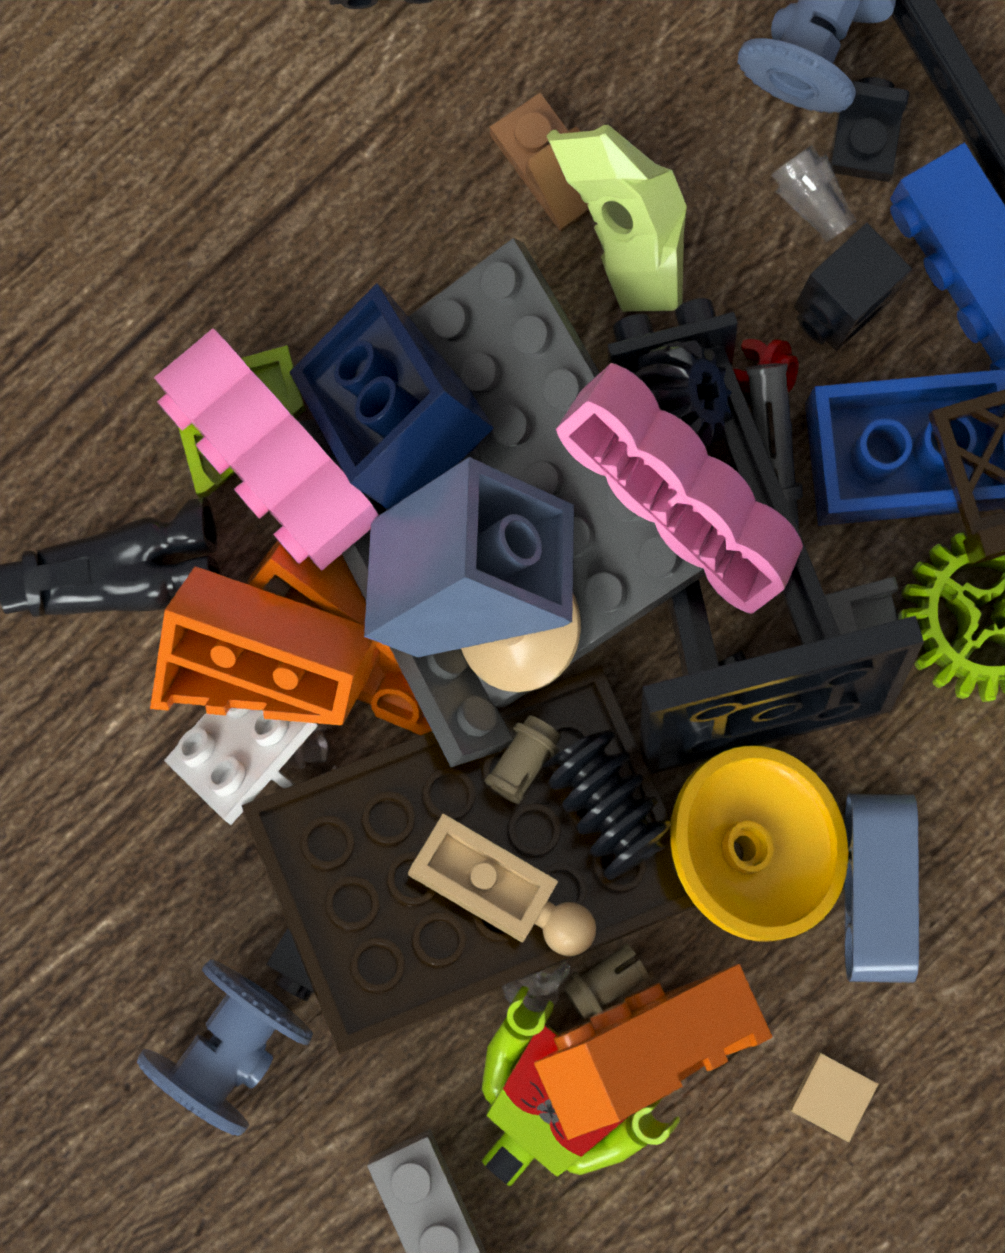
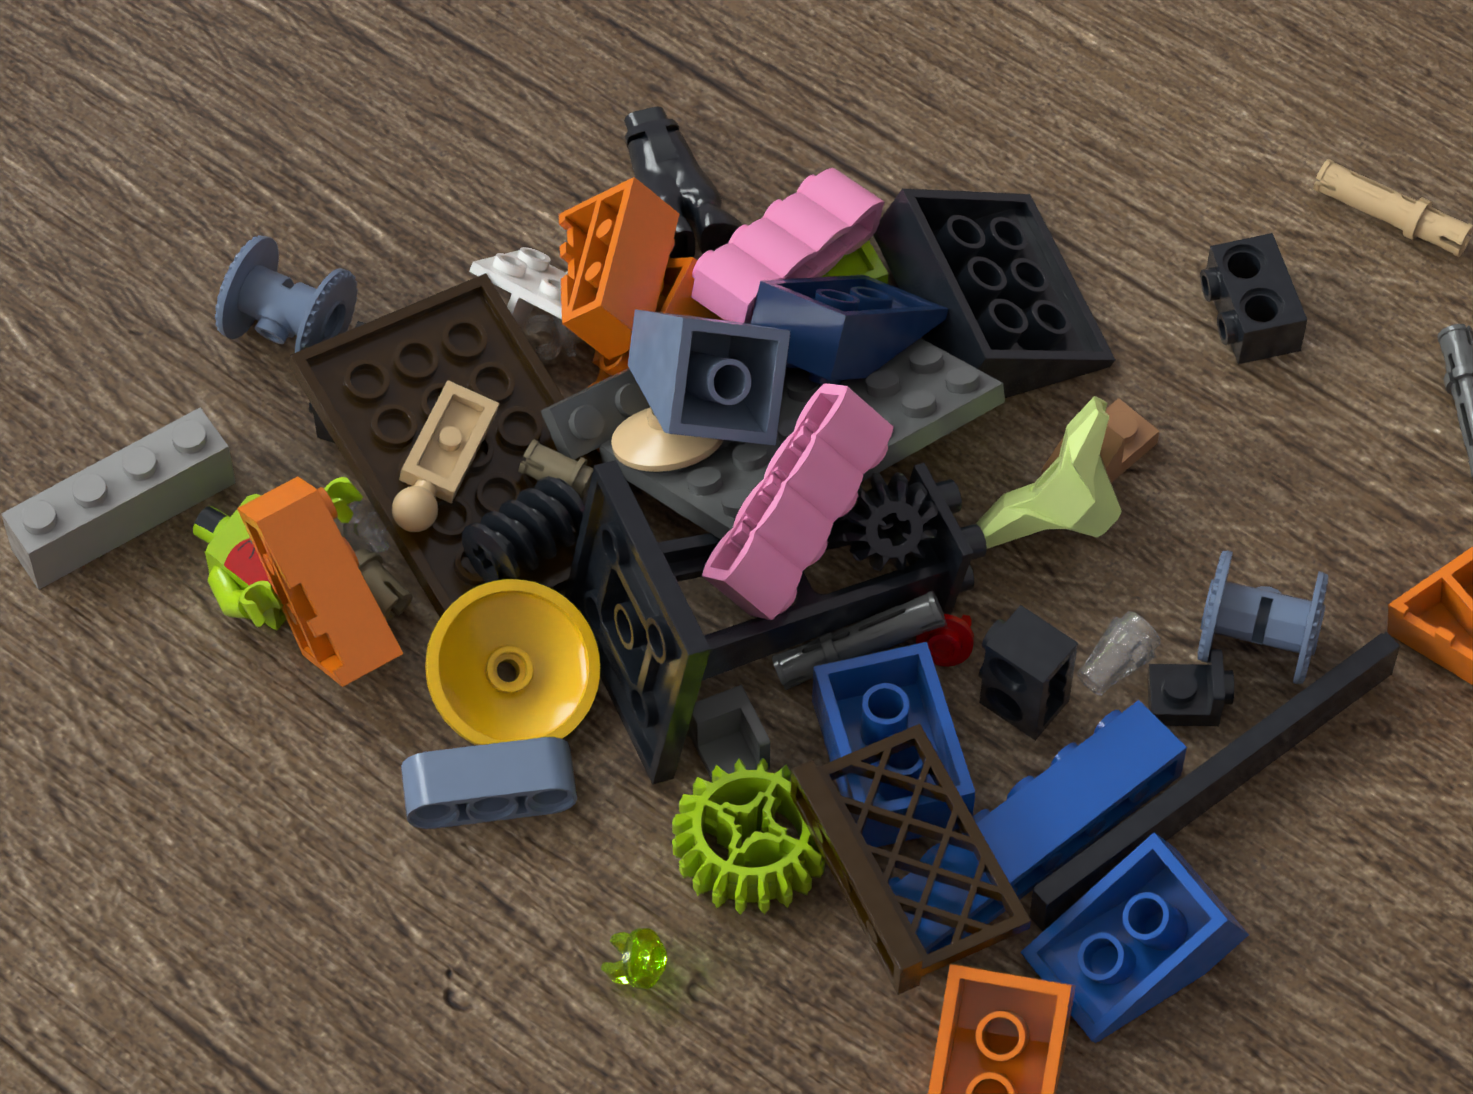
camera: 80 degrees right, 25 degrees down
(316, 226) = (1002, 281): none -> black slope
(833, 1097) = (297, 776): tan tile -> none

